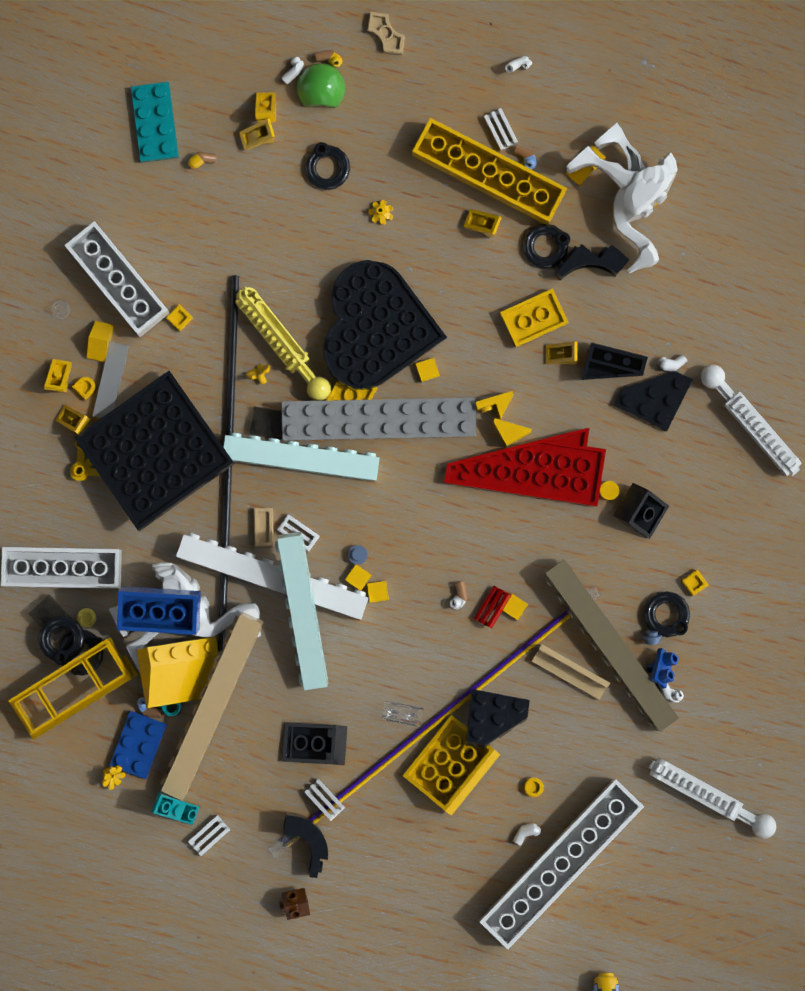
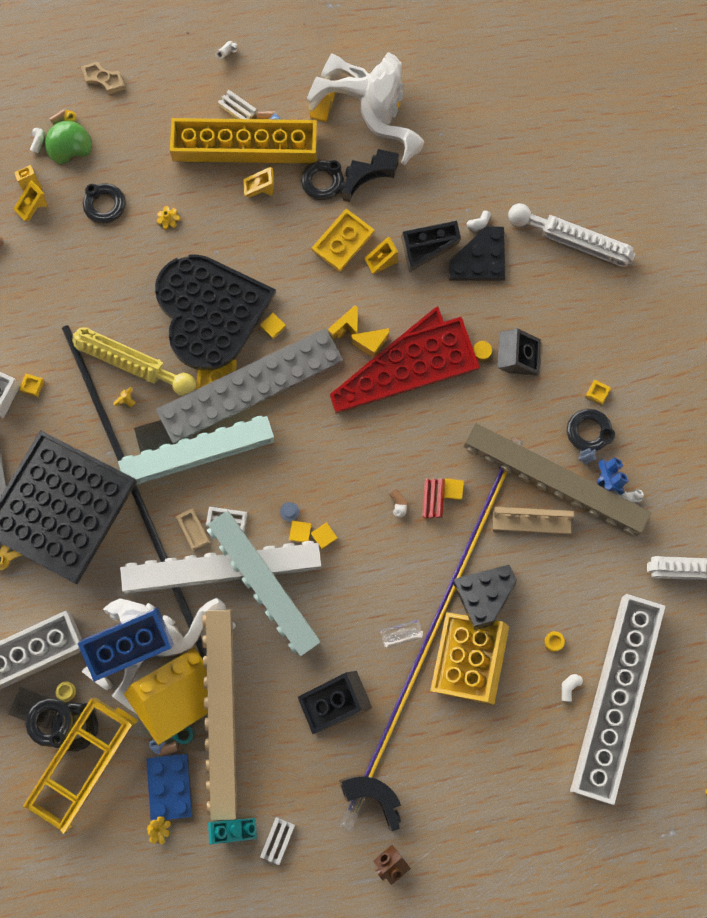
camera: 25 degrees left, 10 degrees down
(314, 789) = (354, 744): white tile -> none

